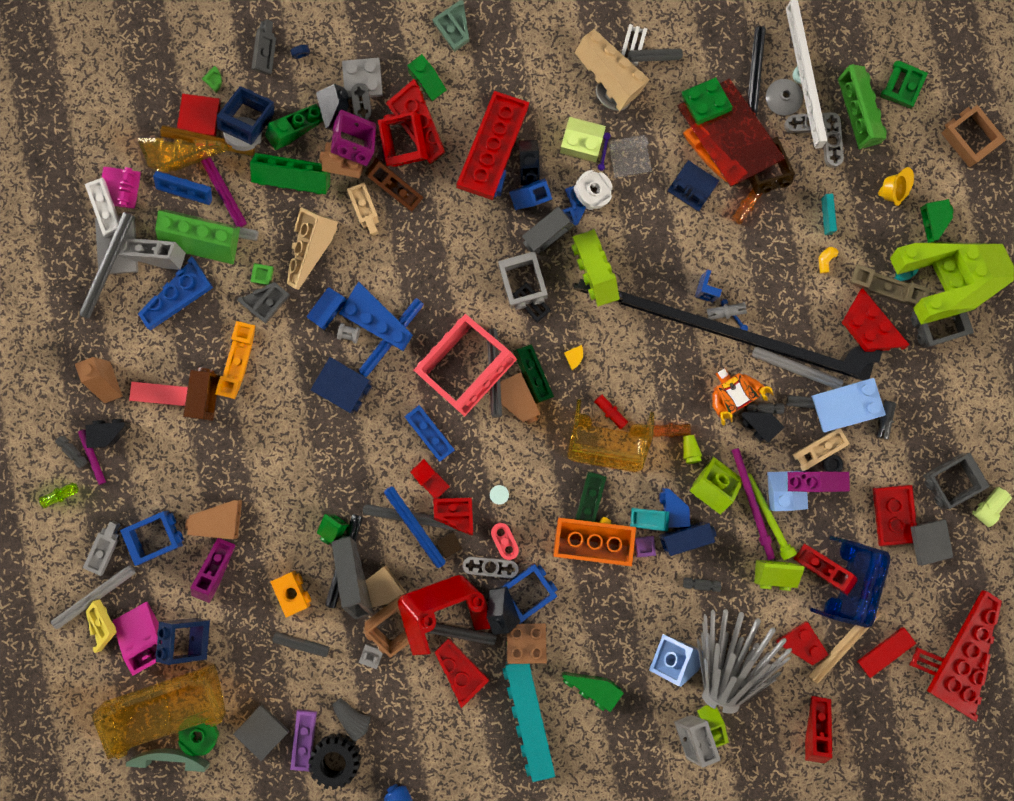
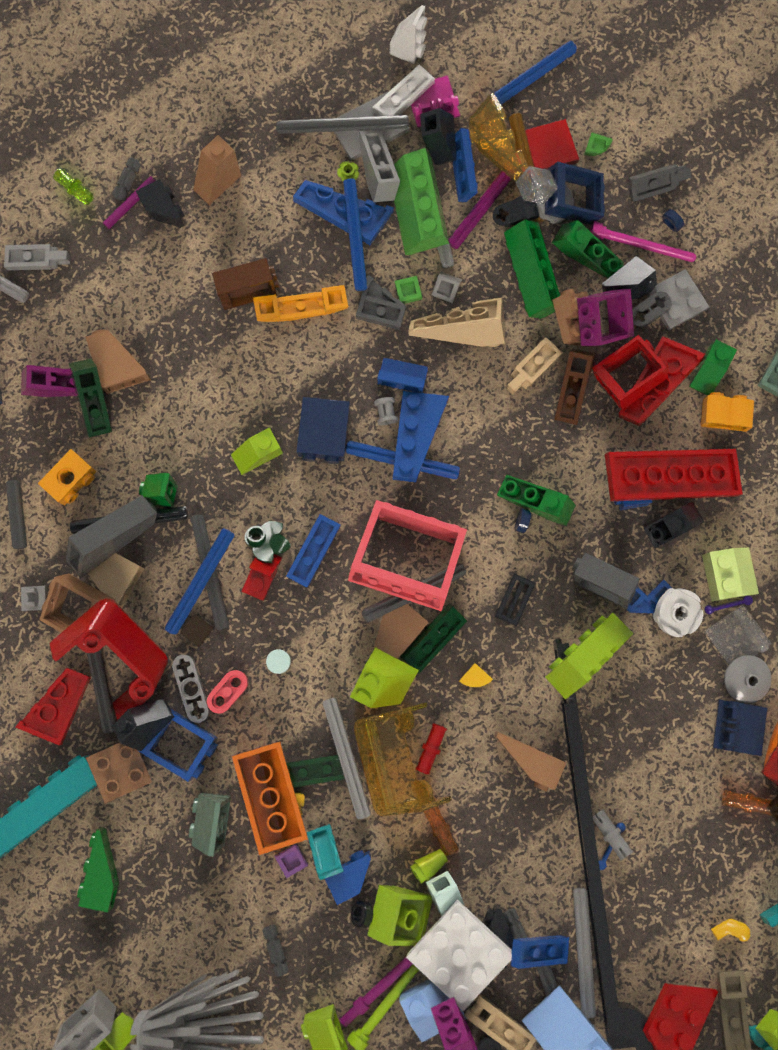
camera: 65 degrees right, 5 degrees down
(59, 181) = (409, 37): none -> white slope
(132, 98) = (536, 72): none -> blue axle
(134, 545) = (52, 287): blue window -> none
(141, 278) = (344, 166): none -> lime plate
(151, 195) = (439, 135): none -> black slope
(158, 393) = (227, 237): coral tile -> none
(200, 294) = (355, 234): none -> blue axle
(227, 140) = (536, 185): none -> clear brick
(235, 550) = (90, 397): none -> dark green slope
(239, 162) = (518, 211): none -> black piece
(273, 244) = (446, 287): none -> light grey slope
(284, 109) = (601, 232): none -> dark pink piece
(335, 443) = (256, 451): none -> lime slope
(408, 462) = (270, 541): none -> plate
(455, 513) = (234, 620): red wing -> none
(464, 83) = (727, 412): none -> light orange brick
(465, 252) = (537, 499): none -> green slope
(476, 270) = (523, 520): none -> dark blue tile
(517, 262) = (552, 561): light grey window -> none
(531, 194) = (637, 543): blue slope -> none
(548, 423) = (383, 681): none -> lime slope
(591, 474) = (346, 758): none -> light grey axle
(592, 592) = (210, 823): none -> sand green slope
(654, 342) = (536, 764): none -> medium nougat slope
(656, 169) = (737, 679): none -> light grey dish
(675, 660) = (171, 958): light blue slope -> none
(687, 538) = (321, 909): dark blue brick -> none
(704, 512) = (362, 914): none -> black tile
(705, 291) = (622, 799): blue panel -> none
(720, 446) = (447, 896): none -> light aqua brick
(736, 393) = (519, 890): torso -> none
(761, 454) = (460, 955): none -> white plate
(783, 398) = (539, 951): none -> blue plate

